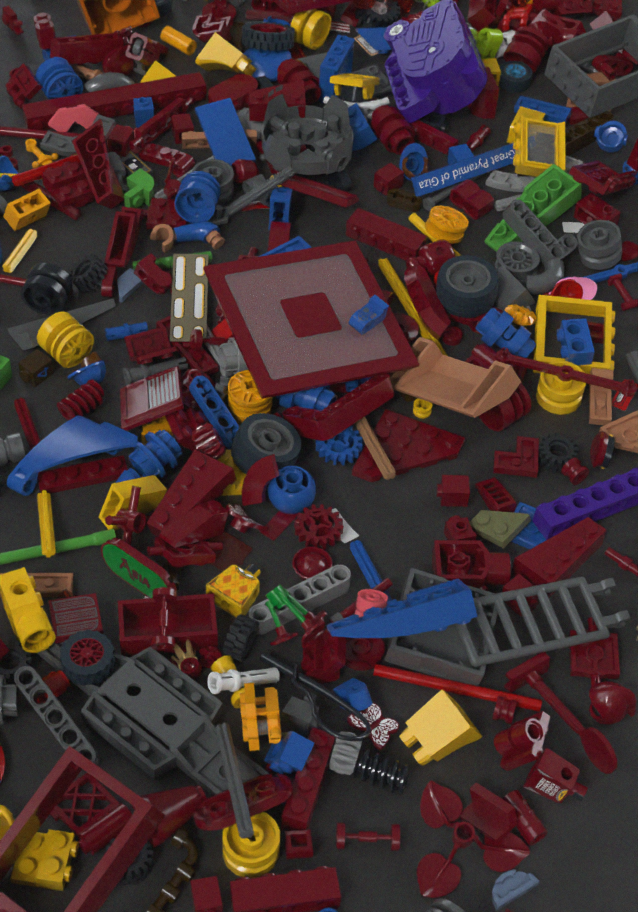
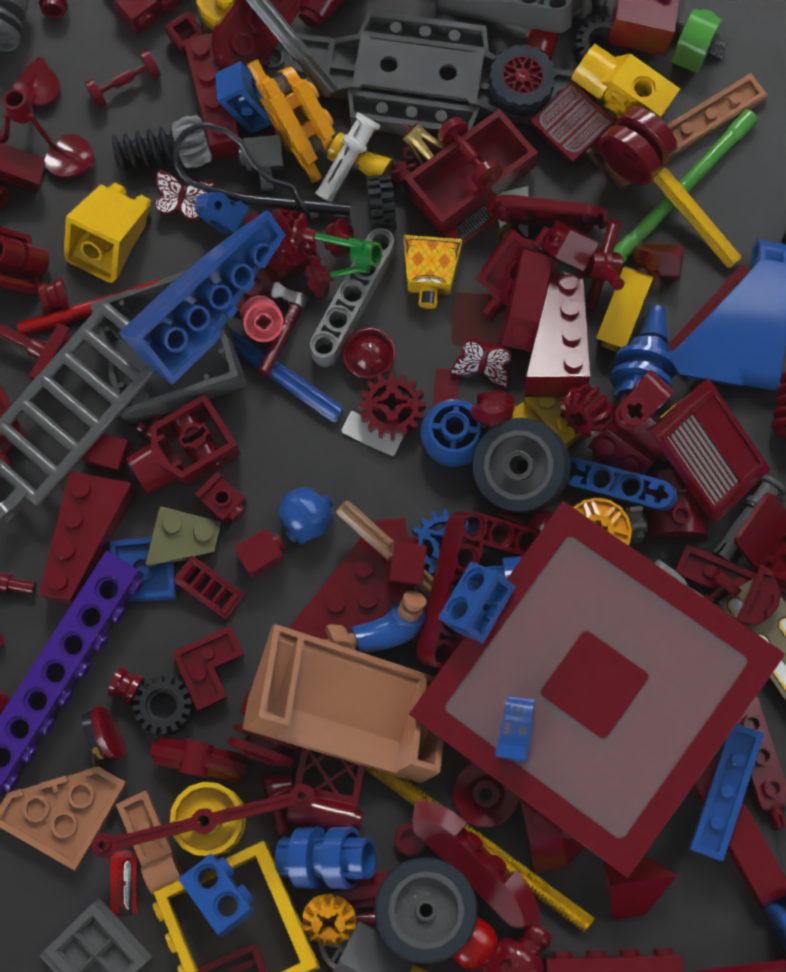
camera: 155 degrees right, 25 degrees up
(51, 566) = (637, 145): none -> dark red wheel
(87, 515) = (660, 259): none -> dark red rock
(144, 533) = (569, 245): none -> dark red brick
(174, 419) = (645, 398): none -> dark red piece
(184, 325) = (761, 598): none -> dark red plate
(347, 375) = (476, 602): none -> blue brick
(372, 426) = (406, 561): none -> dark red brick
(412, 497) = (305, 514): none -> blue cap
(413, 412) = (389, 631): none -> blue piece
(554, 411) = (198, 759): none -> dark red piece

